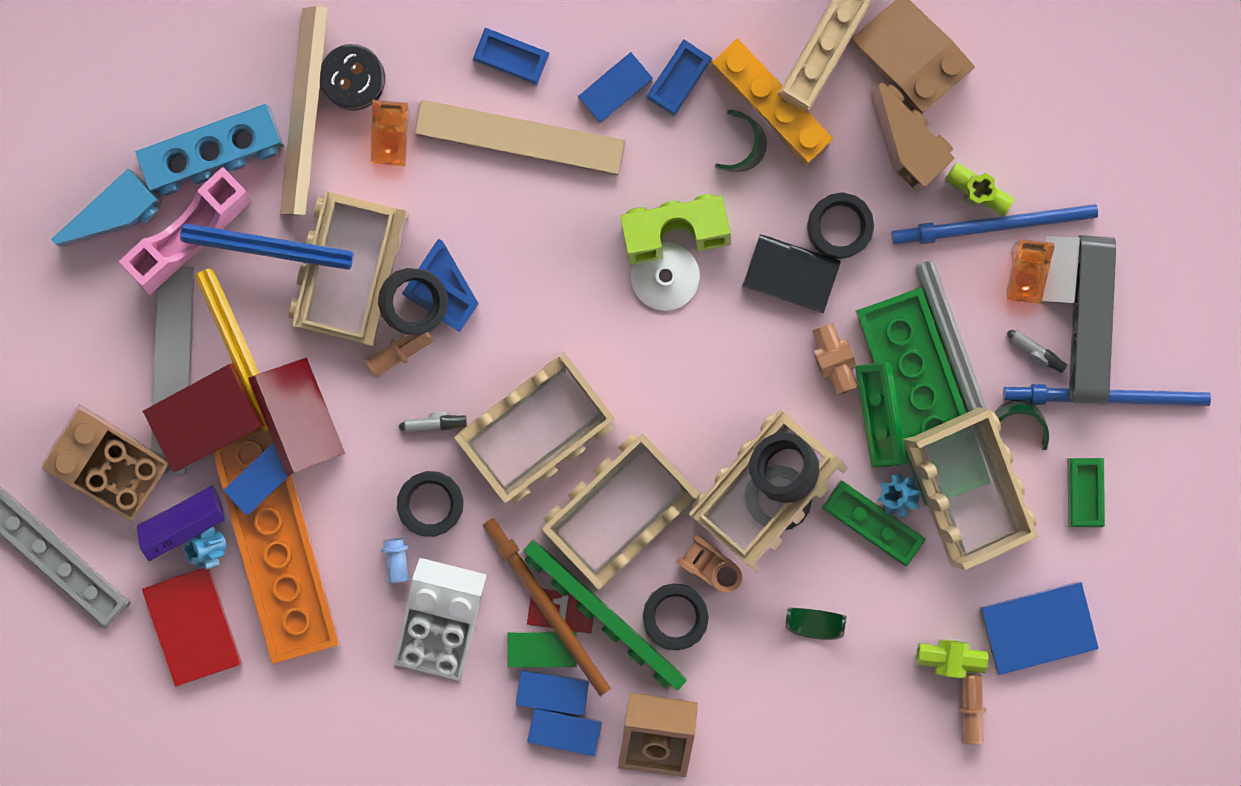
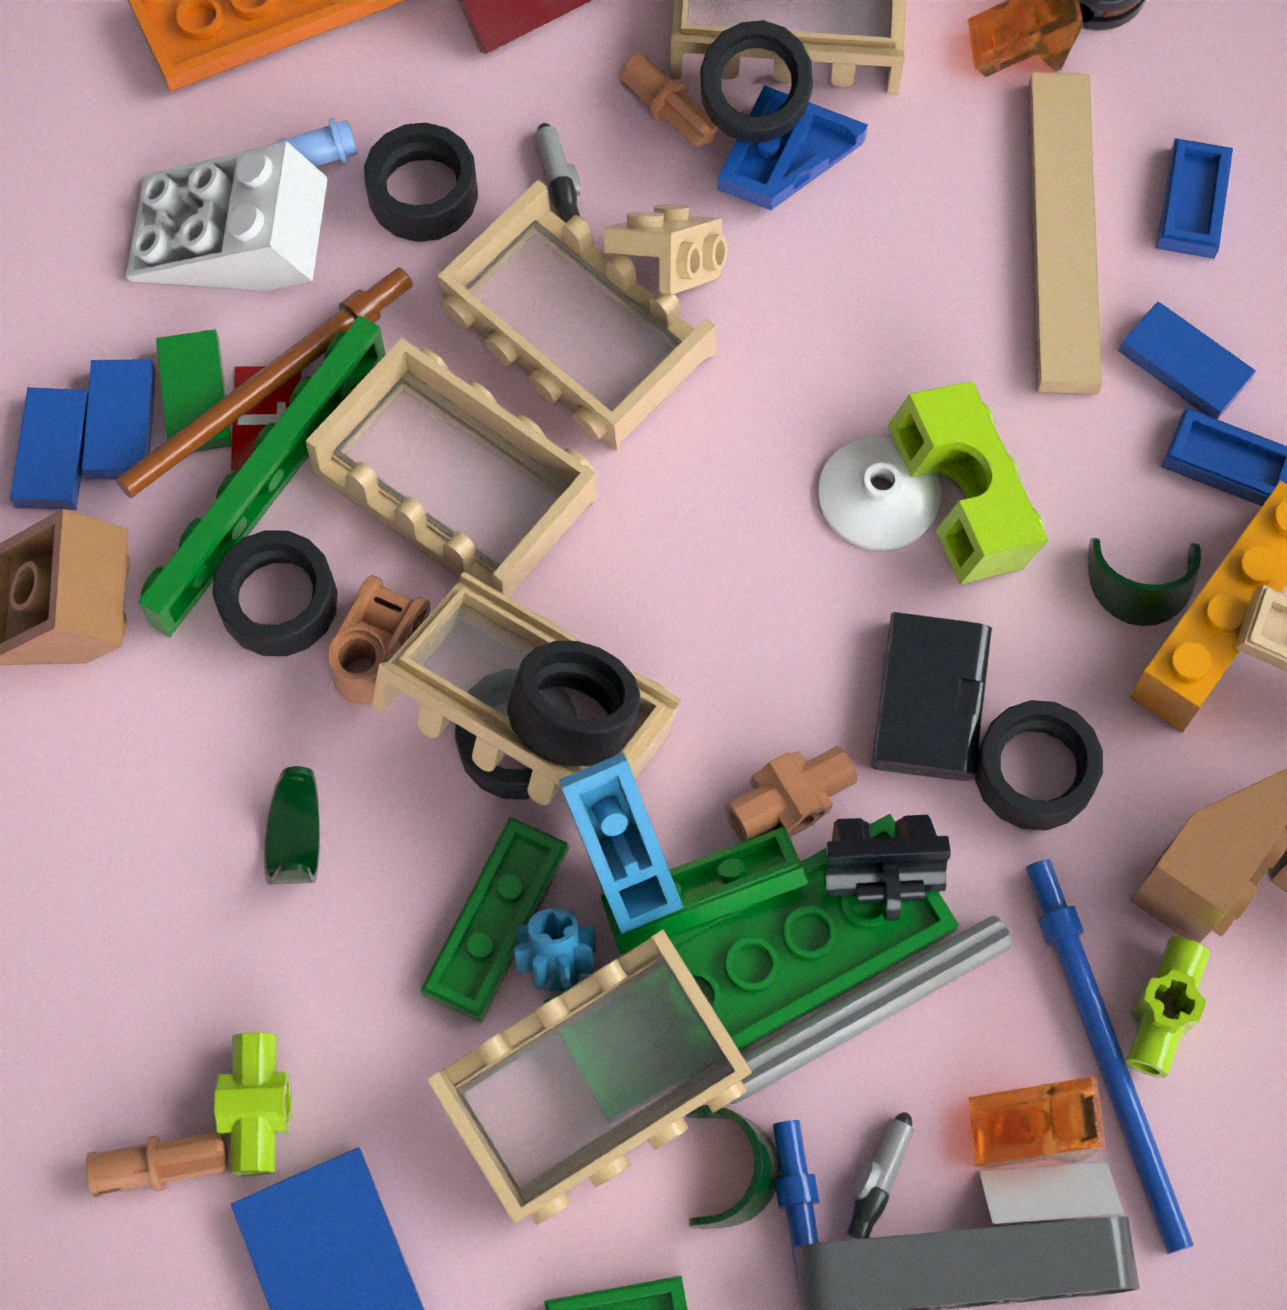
camera: 80 degrees right, 20 degrees down
(505, 368) = (687, 246): none -> tan bracket
(869, 453) = (621, 843): none -> dark azure slope
(887, 334) = (886, 868): none -> black hips

